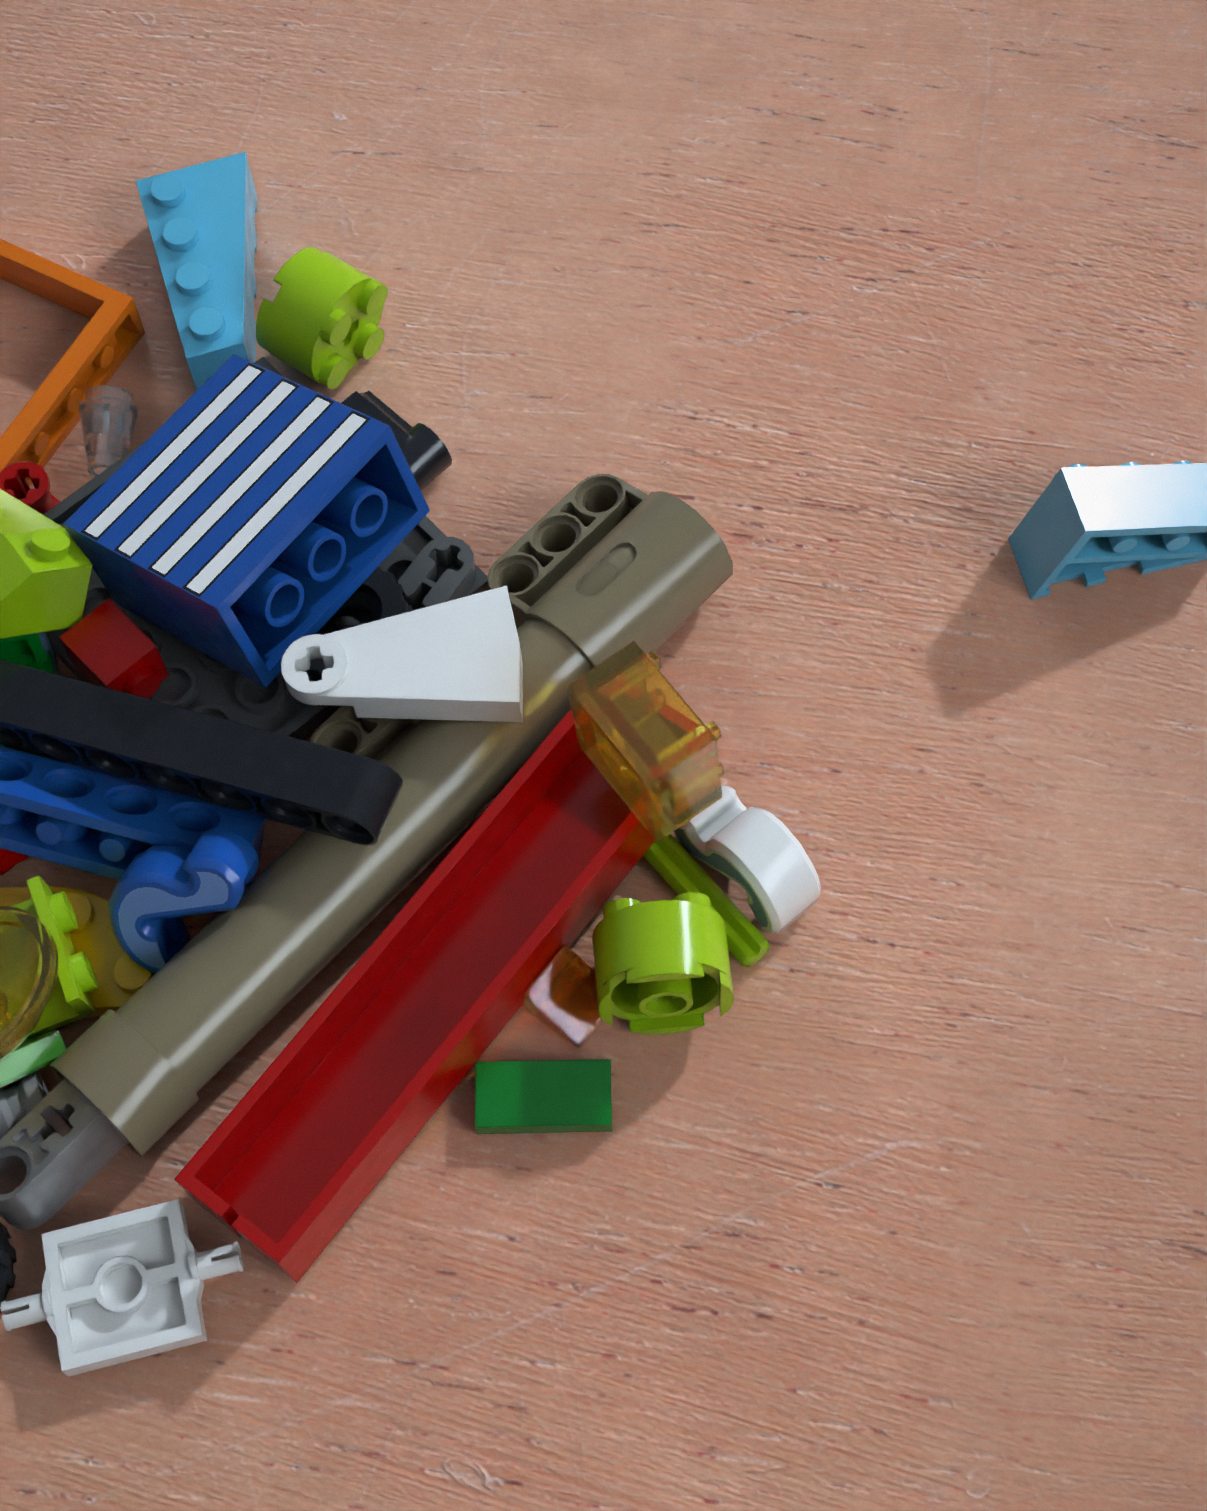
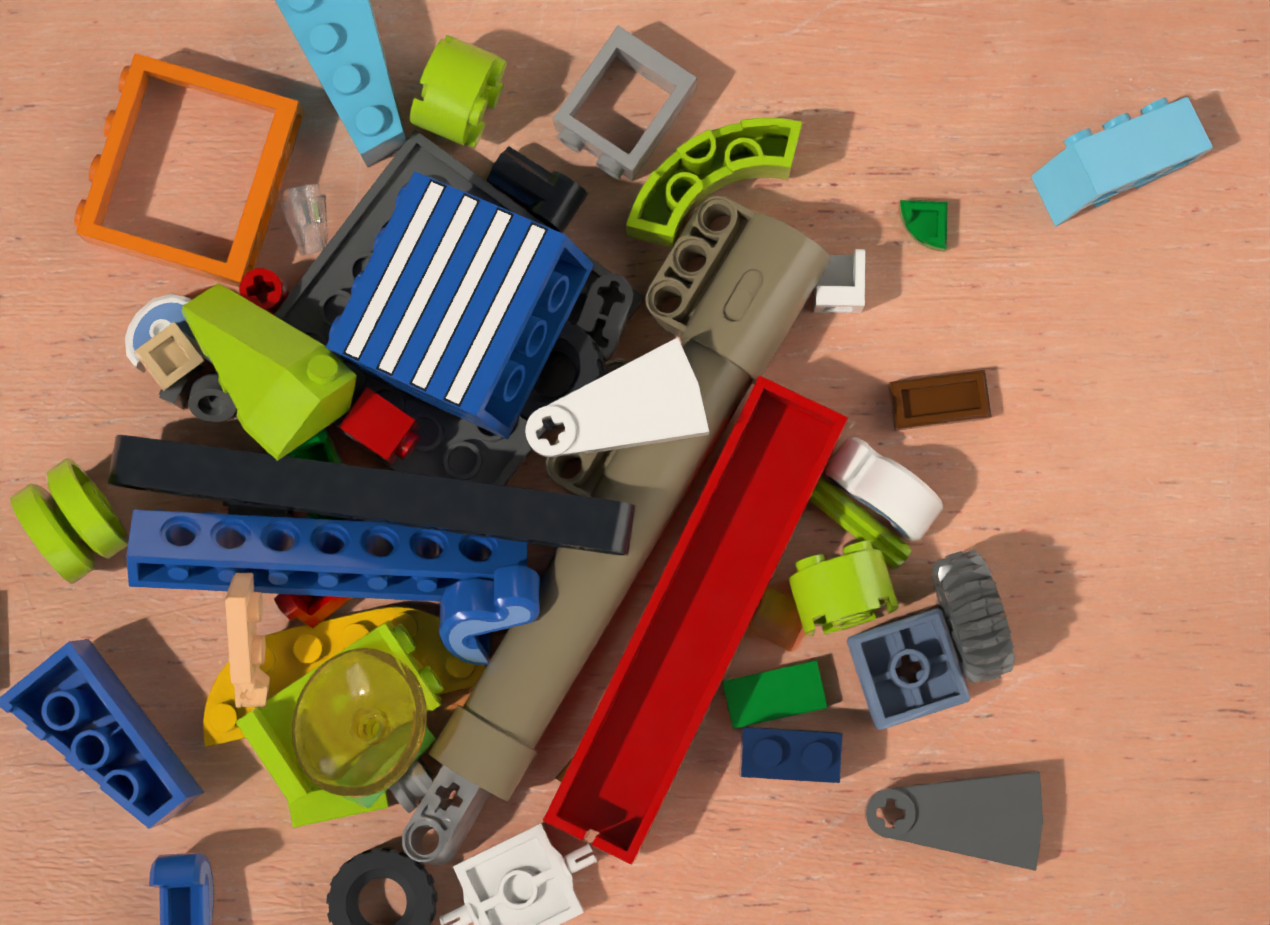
camera: 10 degrees left, 20 degrees up
(543, 1172) = (790, 754): none -> dark blue brick
(555, 330) = (649, 64): none -> light grey window
(635, 439) = (707, 164): none -> lime brick
(646, 740) = (810, 449): clear yellow container -> none
(740, 613) = (842, 285): none -> white panel
(762, 1059) = (936, 685): none -> sand blue brick
(780, 1313) = (975, 817): none -> dark grey piece
(834, 1029) = (974, 615): none -> dark grey gear
(843, 770) = (940, 400): none -> reddish brown tile
(865, 564) = (926, 222): none -> green tile

